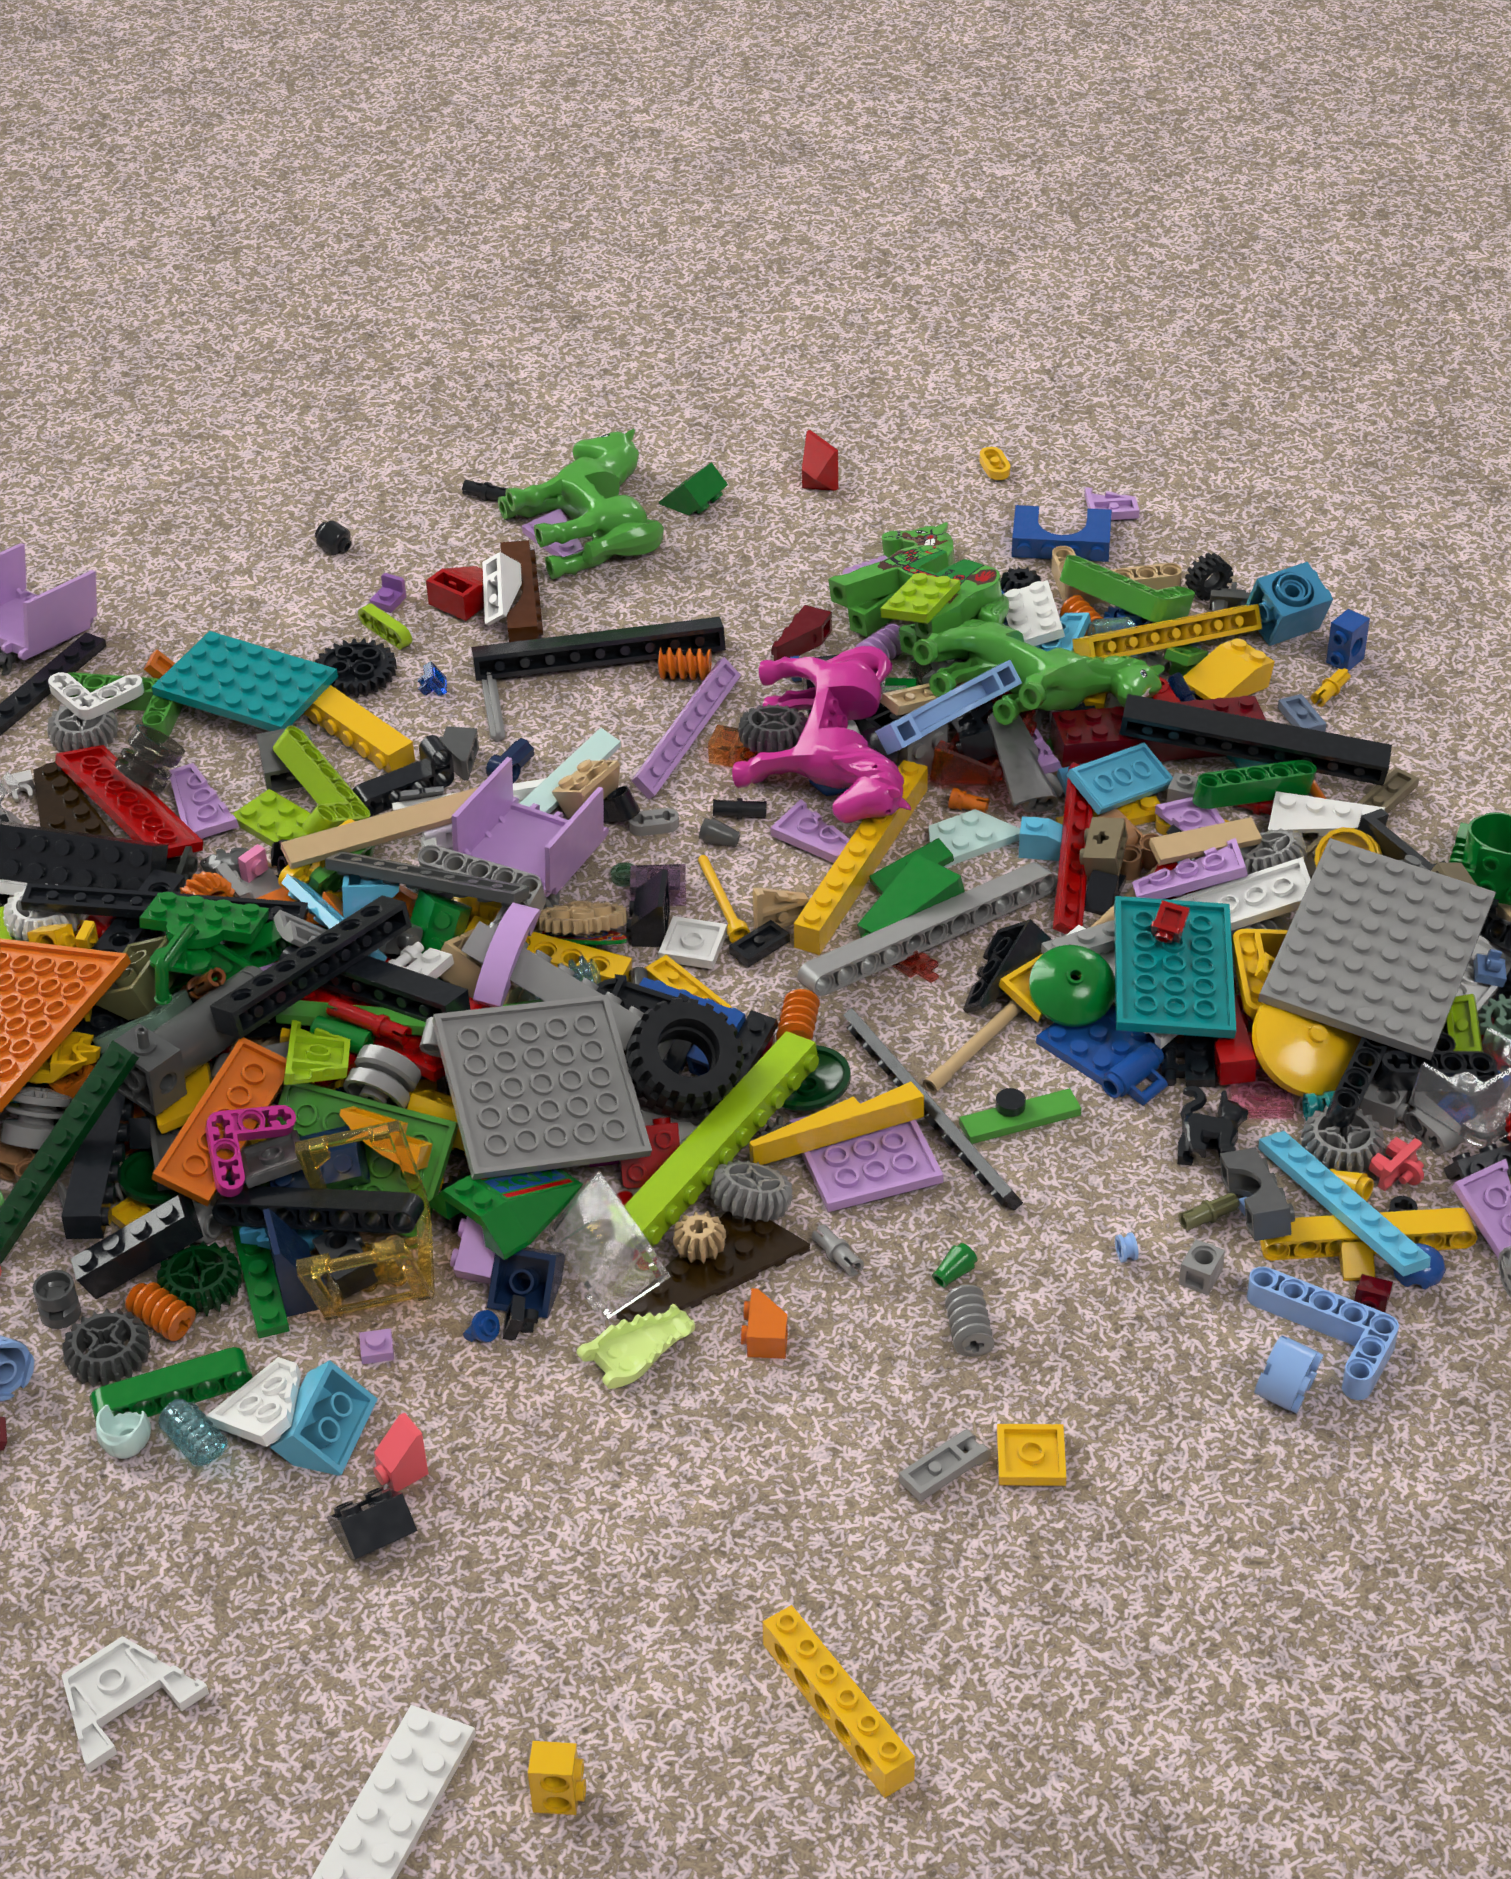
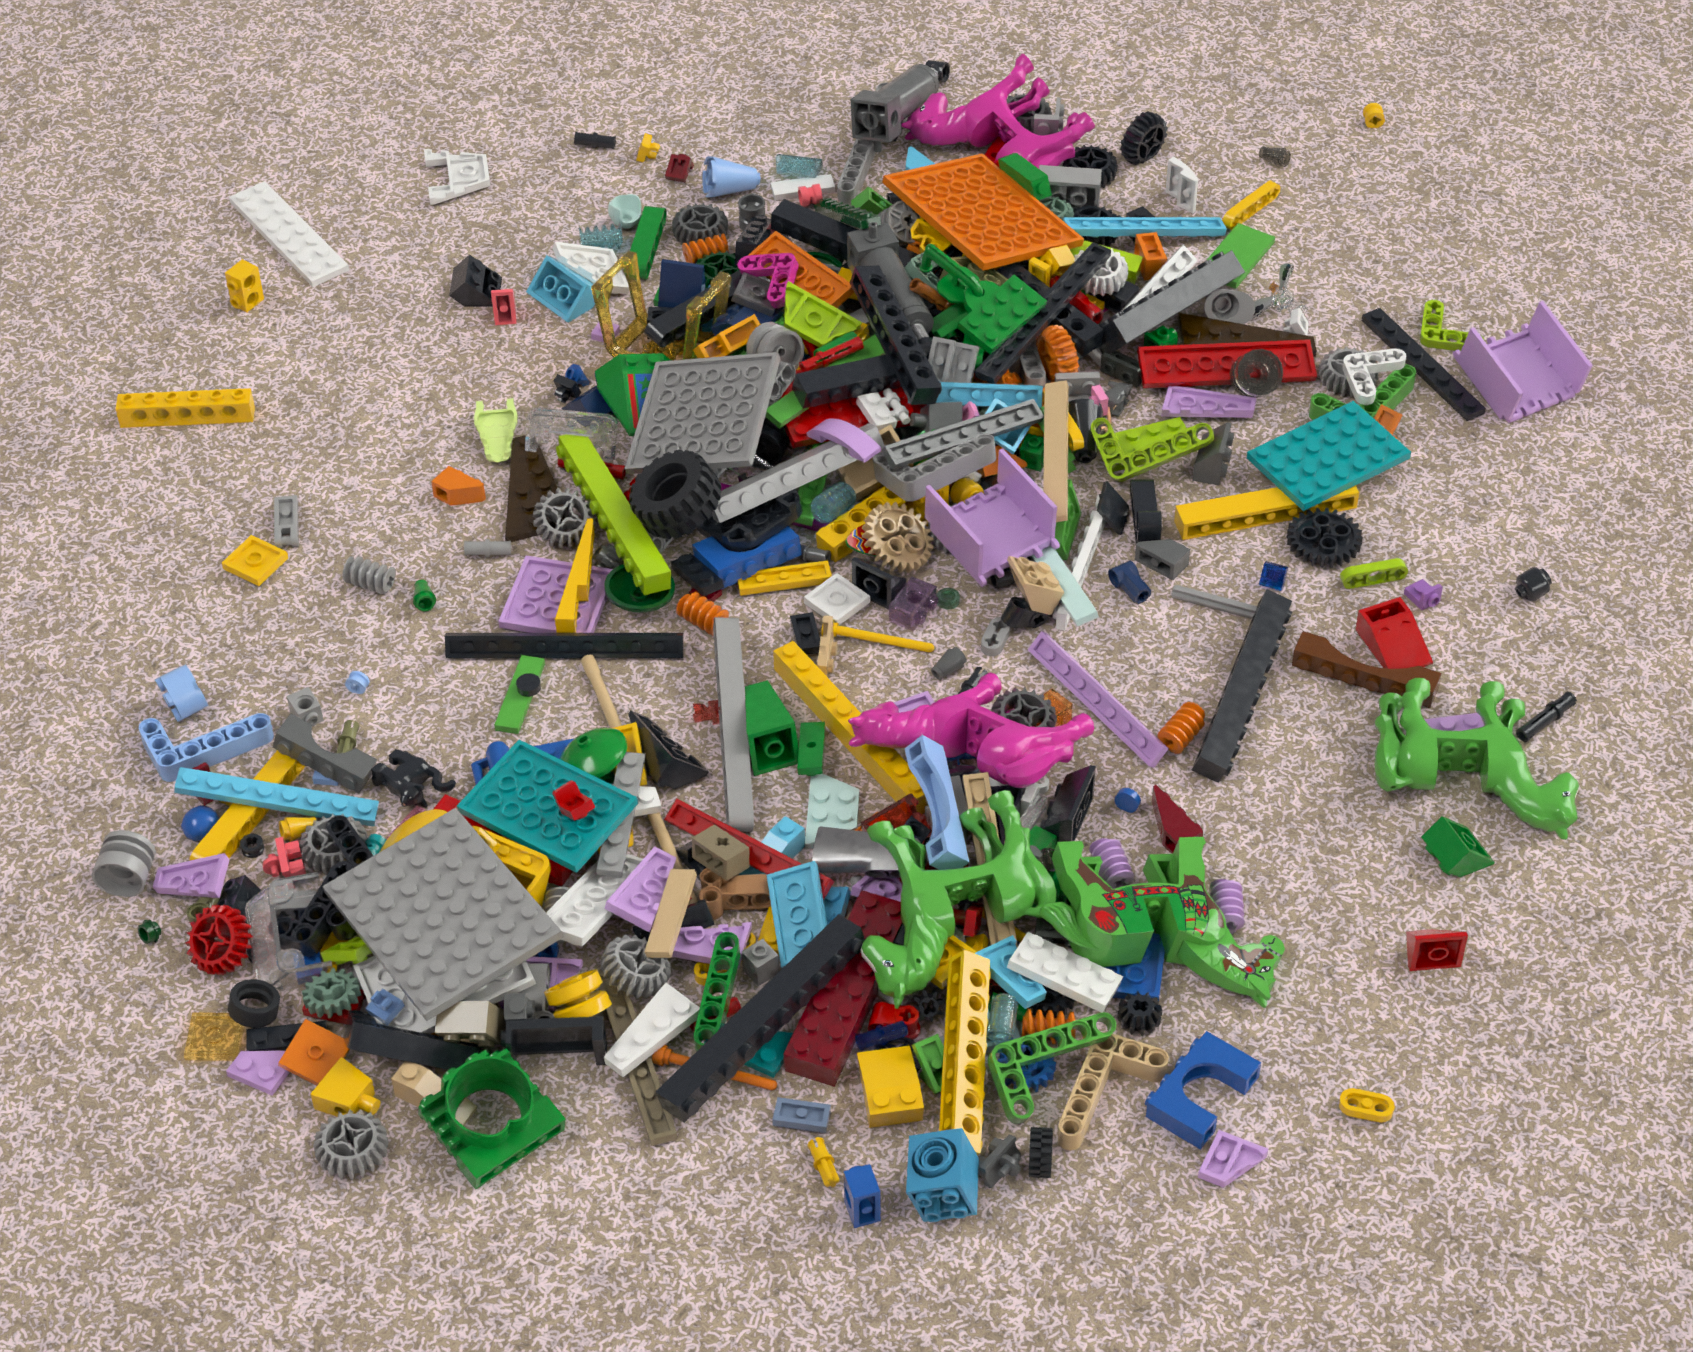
camera: 120 degrees right, 5 degrees up
(500, 586) = (1367, 646): white slope -> none
(699, 1237) = (544, 475): tan gear -> none
(920, 598) = (1096, 852): lime plate -> none

